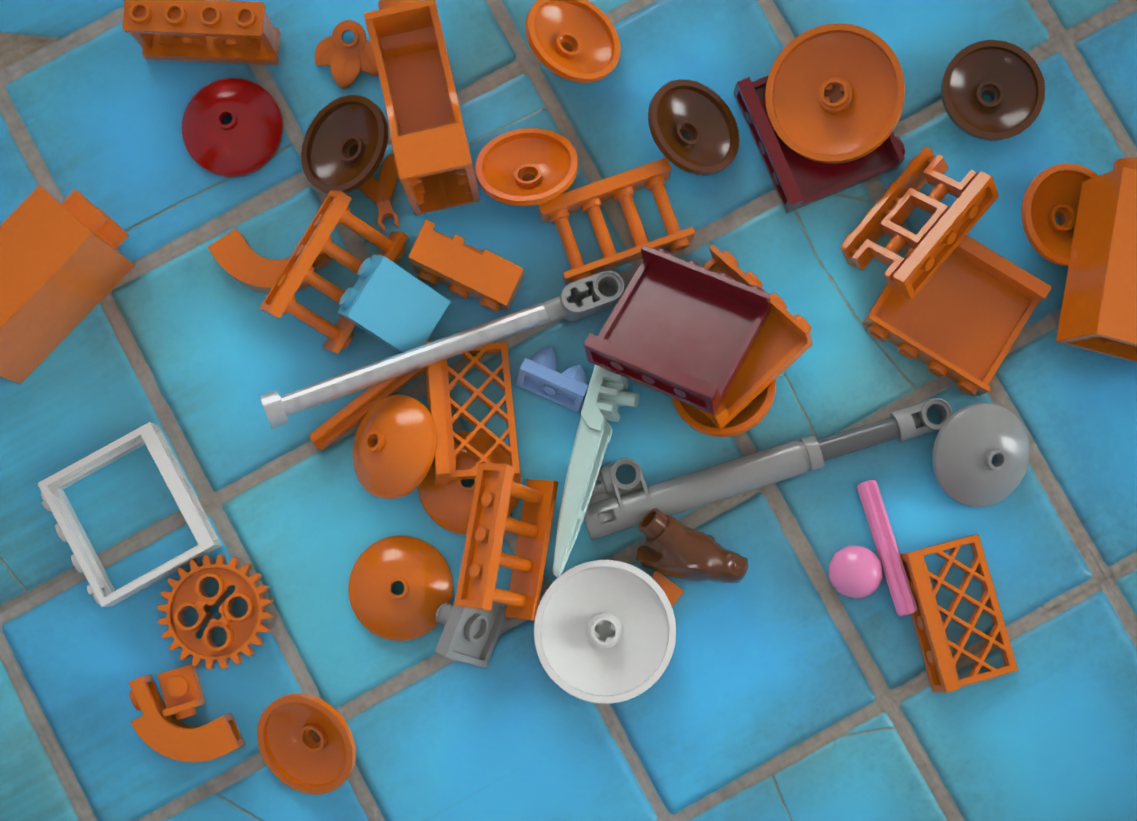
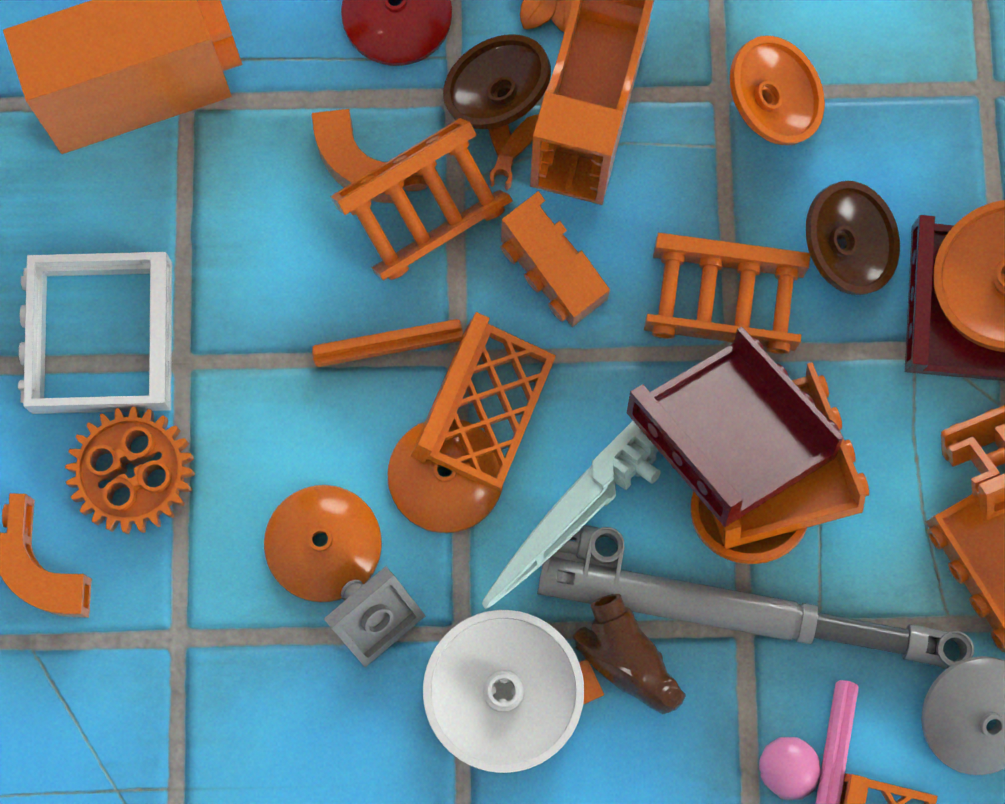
camera: 25 degrees right, 5 degrees down
(181, 691) = (54, 531): orange bracket -> none
(279, 407) = (301, 300): flat silver piece -> none
(306, 743) = (135, 648): orange dish -> none
(392, 305) = (461, 261): medium azure brick -> none
(394, 447) = (390, 399): orange dish -> none
(485, 538) = (433, 531): orange fence -> none
(526, 166) = (665, 192): orange dish -> none
(541, 378) = (572, 409): light blue tile -> none

